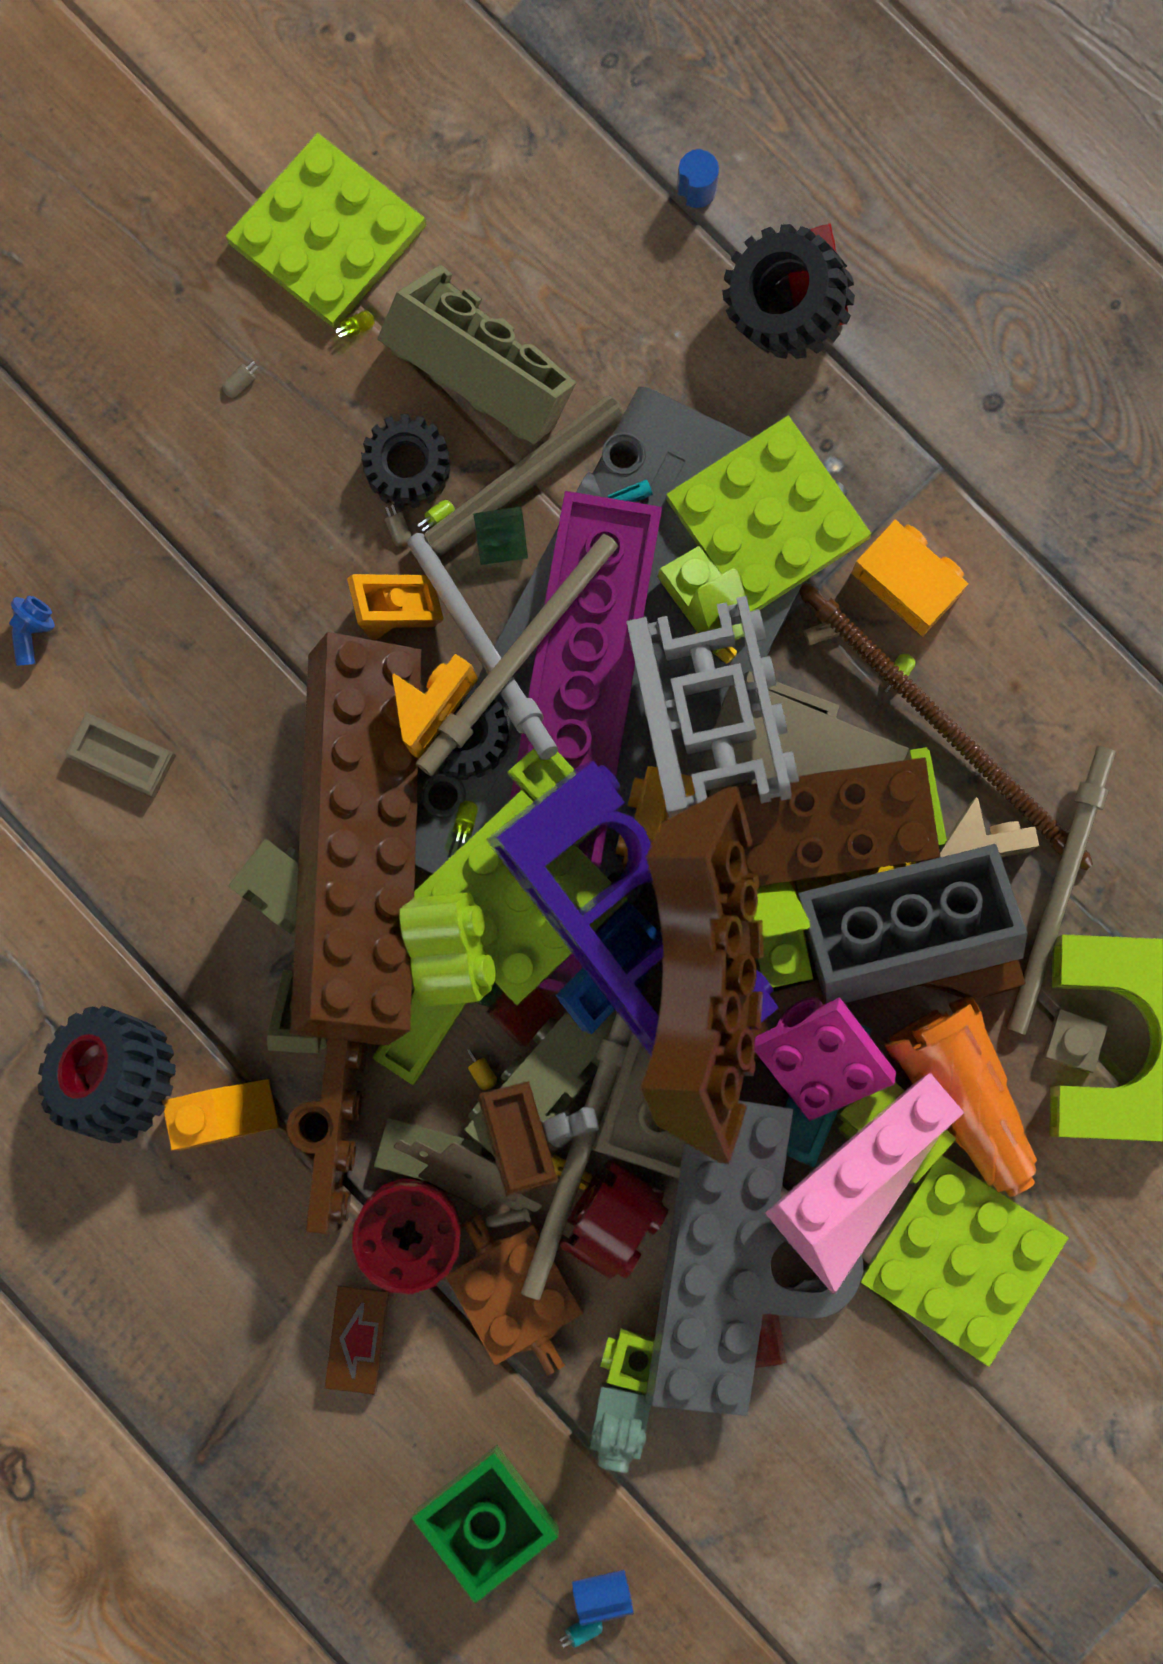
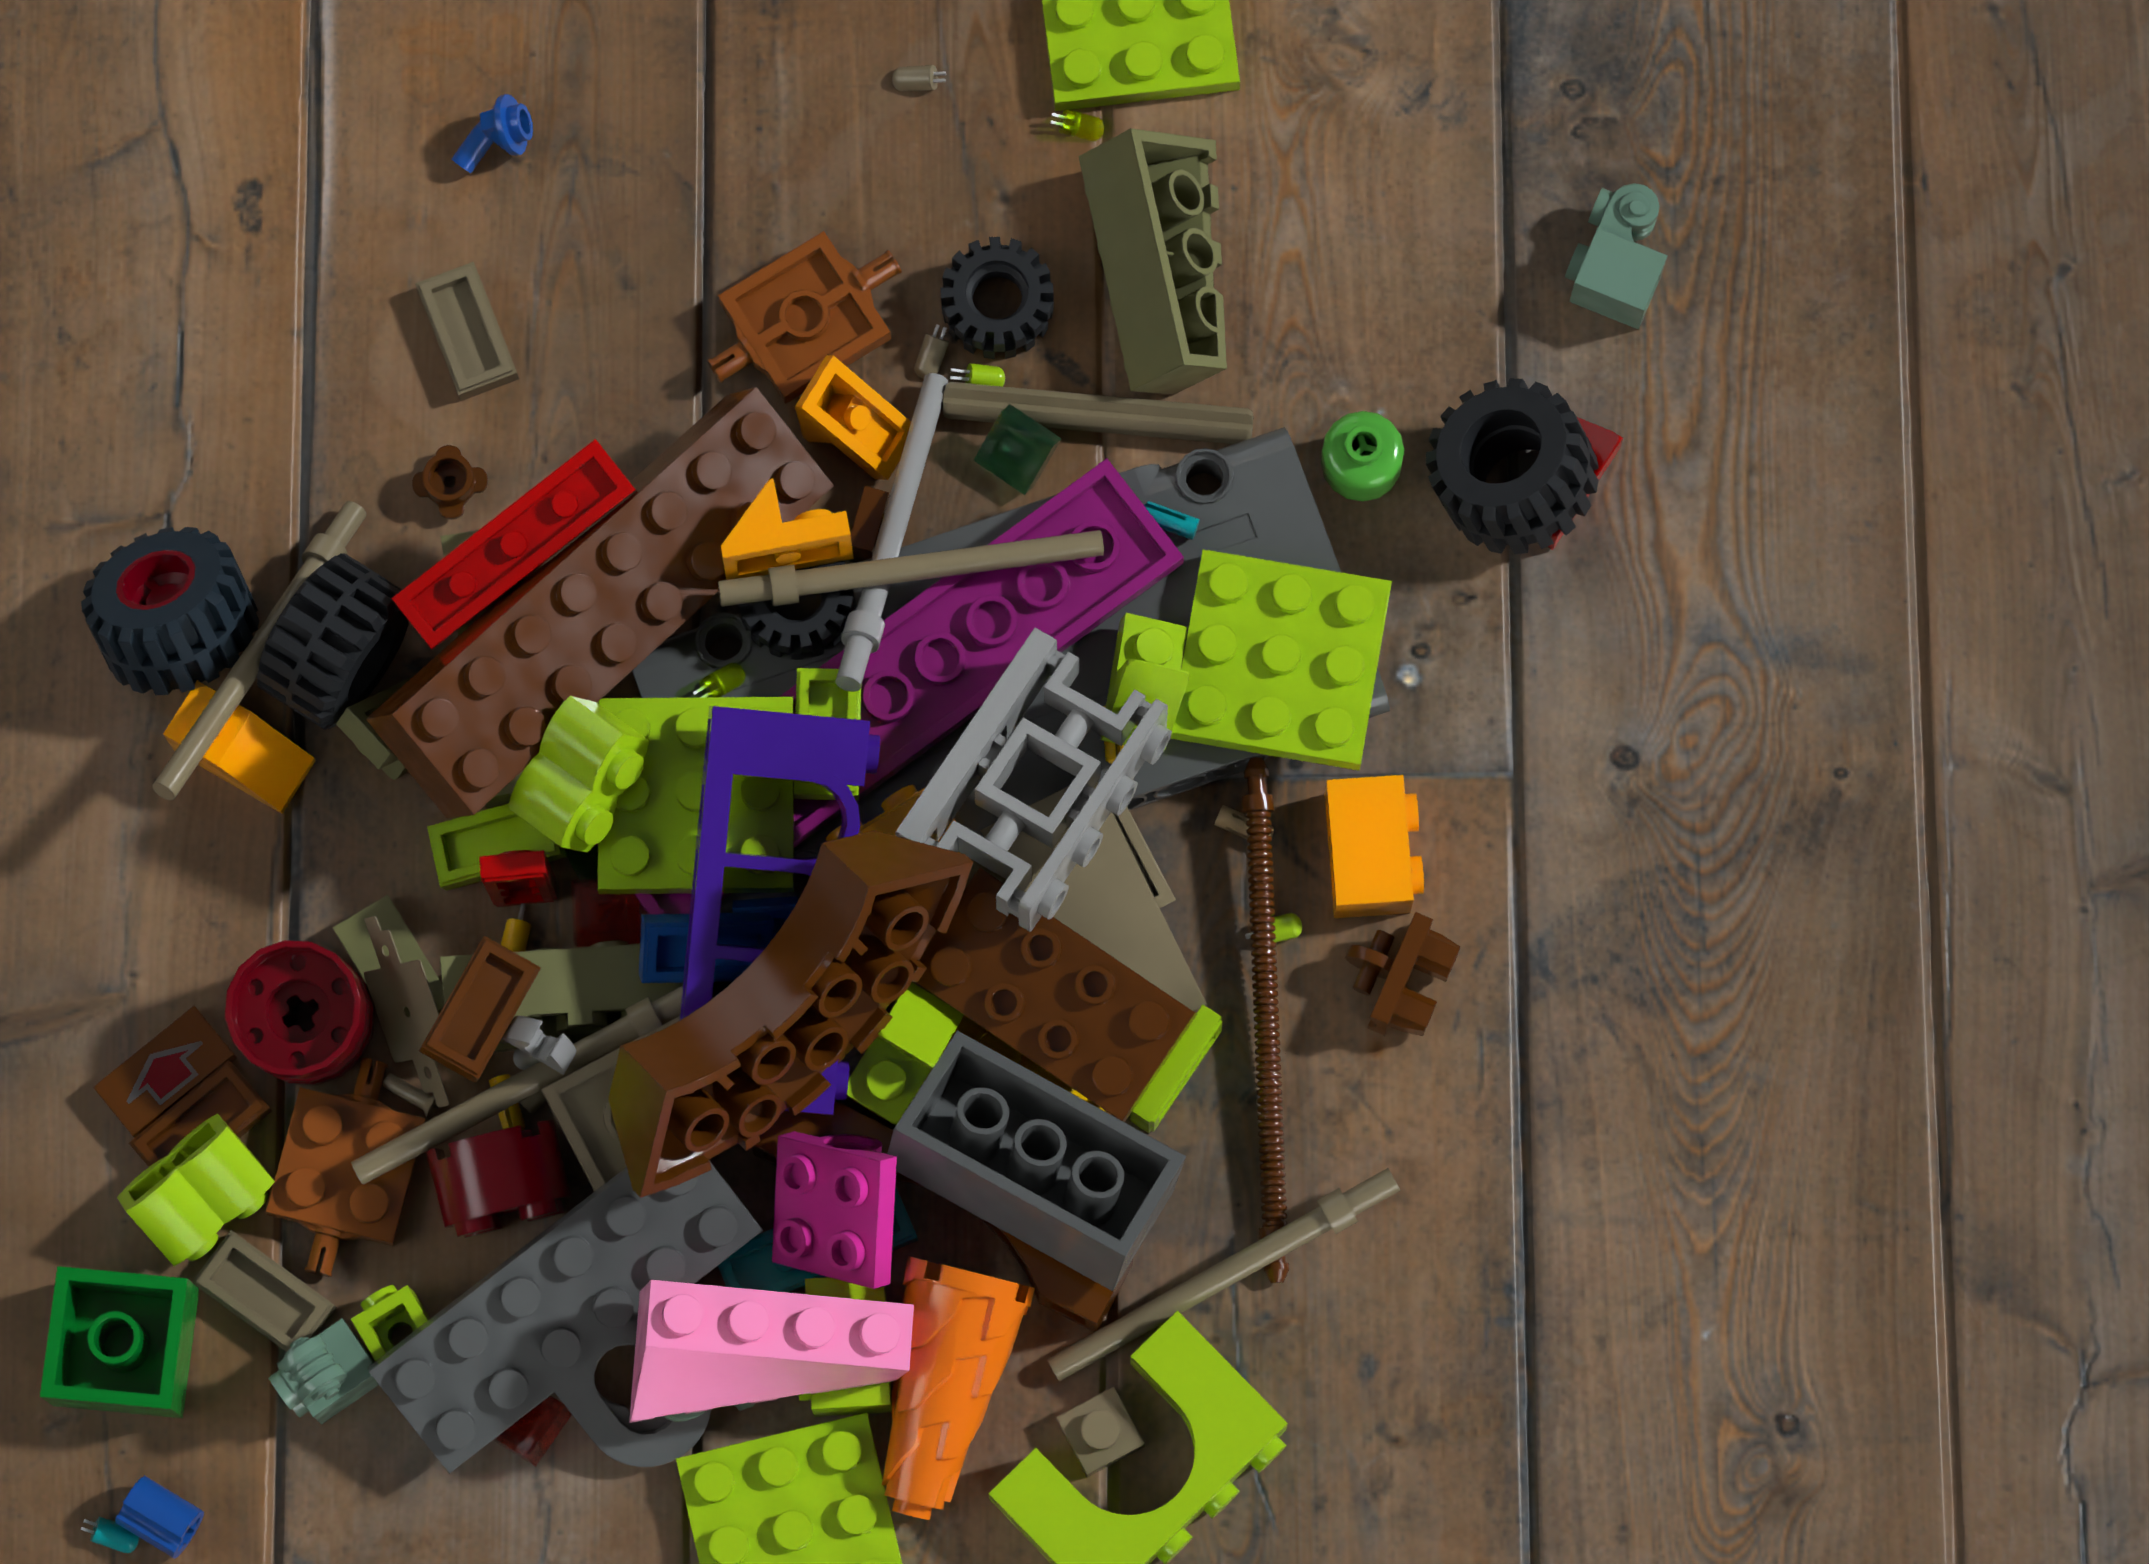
camera: 40 degrees right, 5 degrees down
(164, 962) = (245, 671): none -> dark tan bar
(184, 839) = (448, 464): none -> reddish brown plate
(220, 1003) = (332, 641): none -> black tyre
(277, 851) = (513, 544): none -> red plate
(307, 570) = (802, 311): none -> dark orange plate
(335, 1152) = (307, 874): reddish brown plate -> none
(407, 1351) = (221, 1093): none -> reddish brown tile
(444, 1393) = (196, 1191): none -> lime brick
(456, 644) = (868, 523): none -> reddish brown plate
(456, 1038) = (518, 878): none -> red plate
(537, 1411) = (263, 1293): none -> dark tan tile
(697, 363) = (1343, 460): none -> bright green head
(698, 178) = (1539, 279): blue piece -> none
(736, 135) = (1615, 272): none -> sand green brick
(970, 834) = (1213, 1178): tan slope -> none
(990, 612) = (1396, 1004): none -> reddish brown hips

